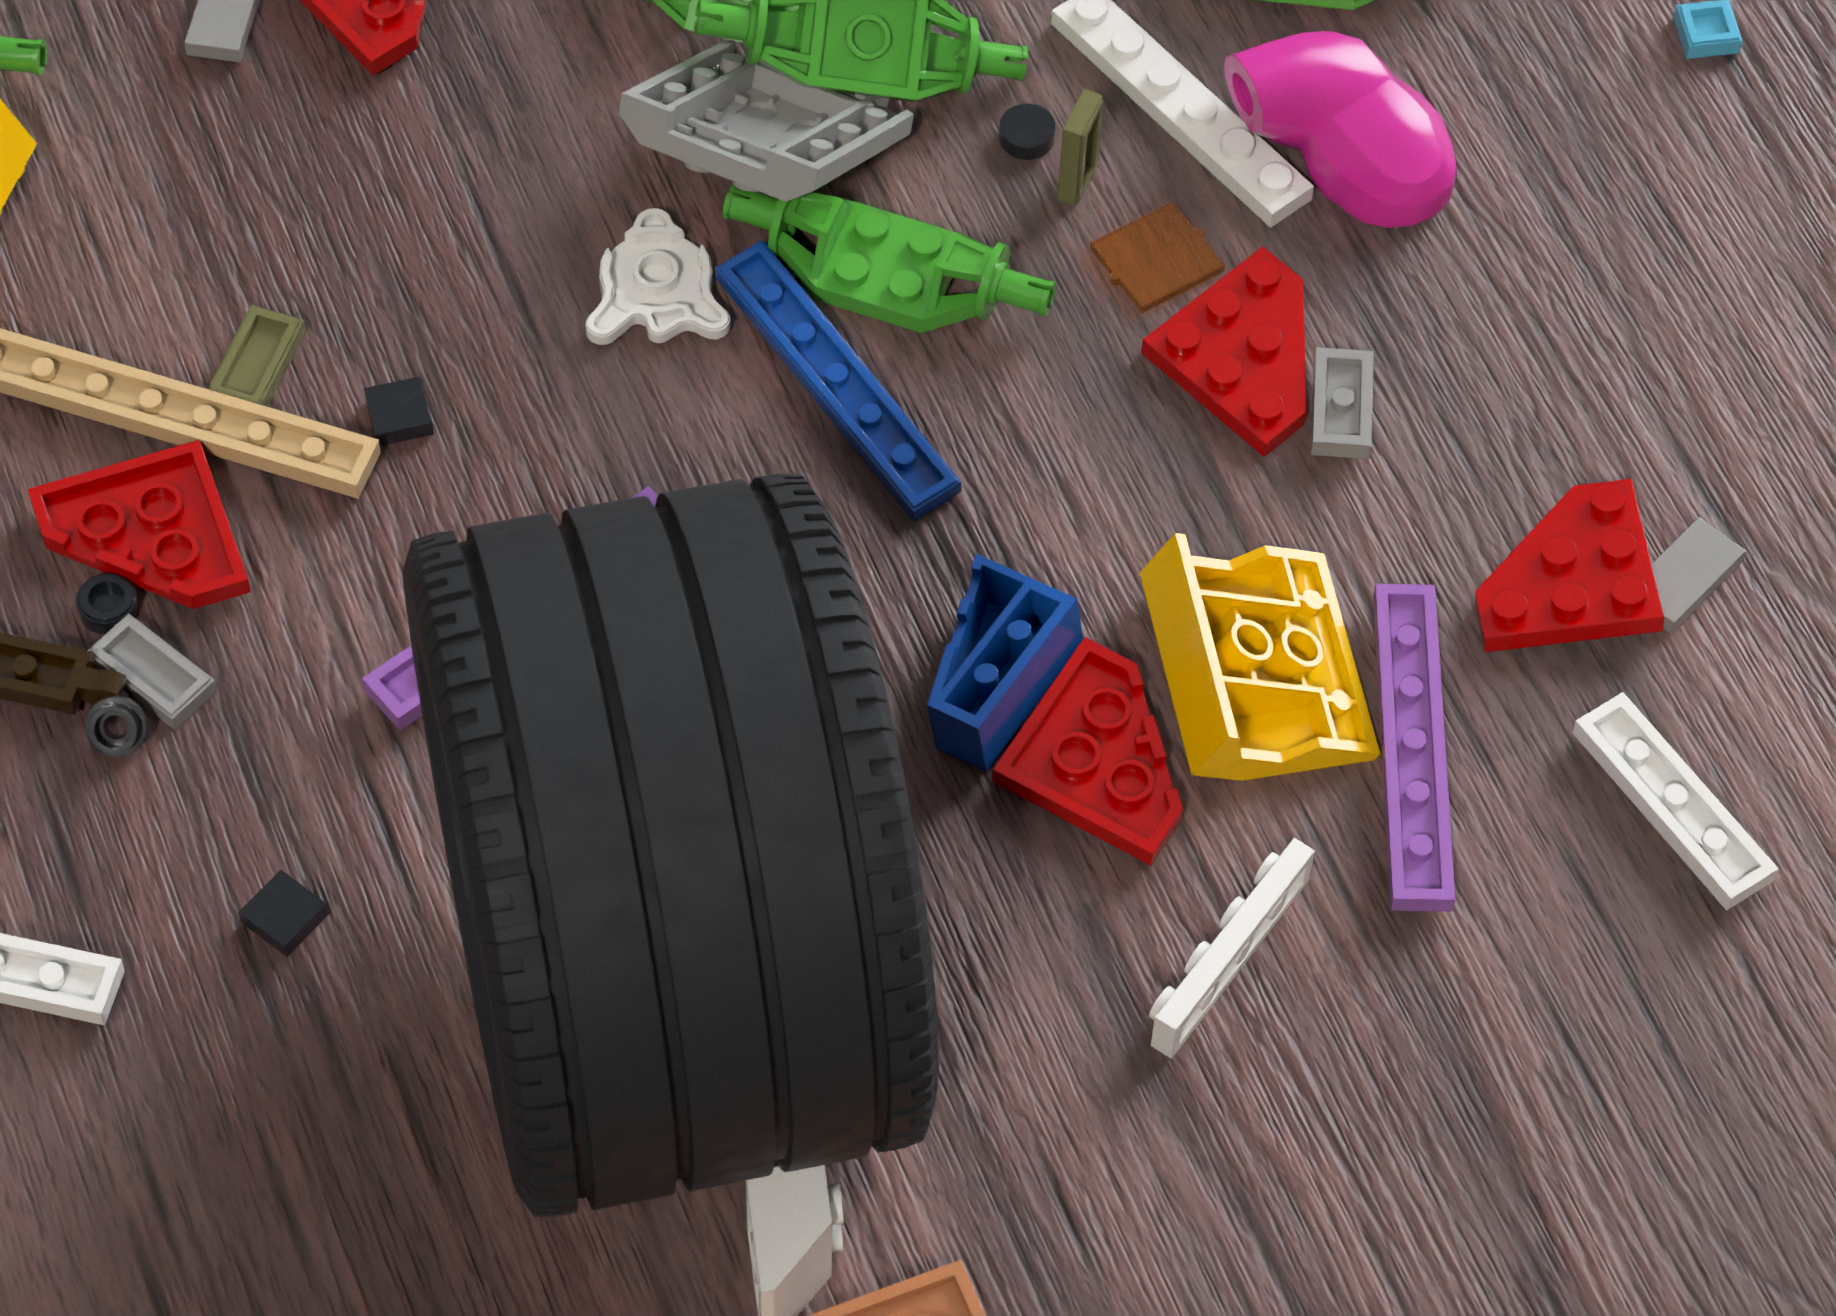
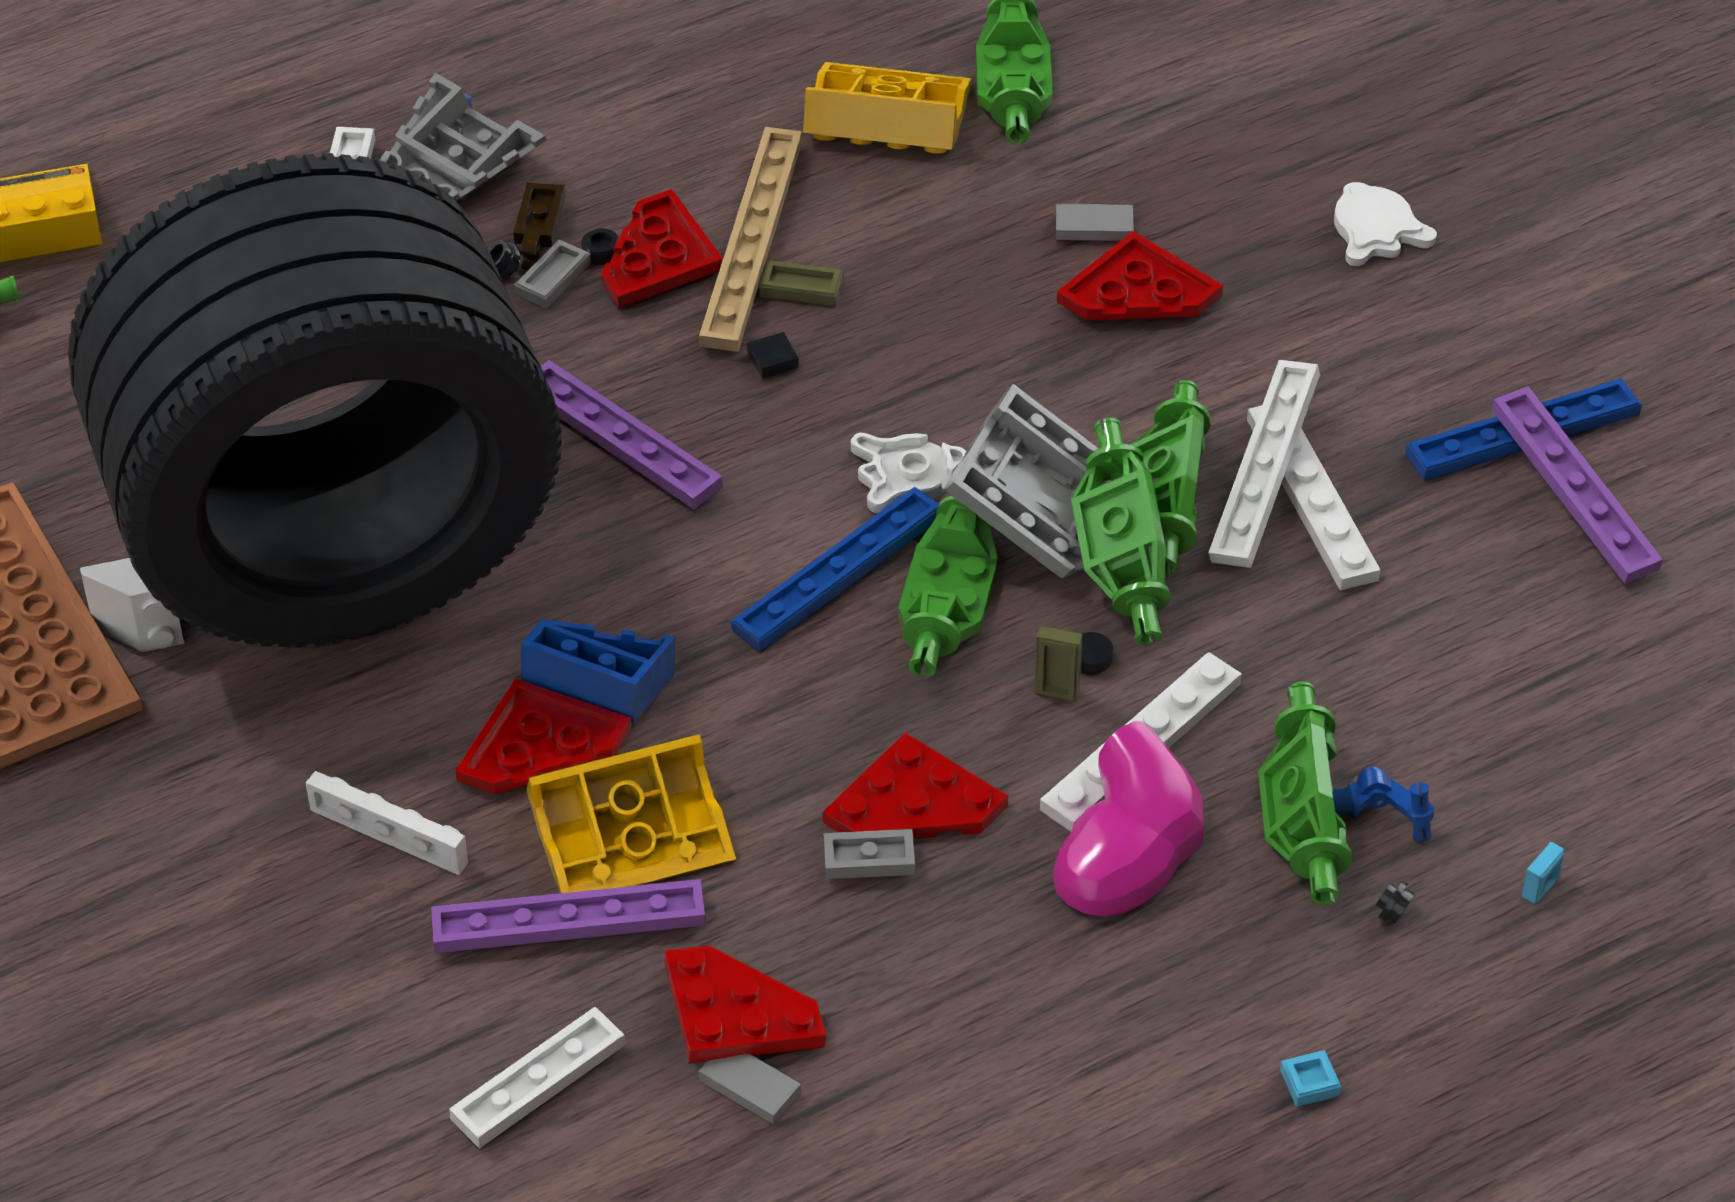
camera: 85 degrees right, 10 degrees down
(1157, 257) = (993, 742): clear orange piece -> none

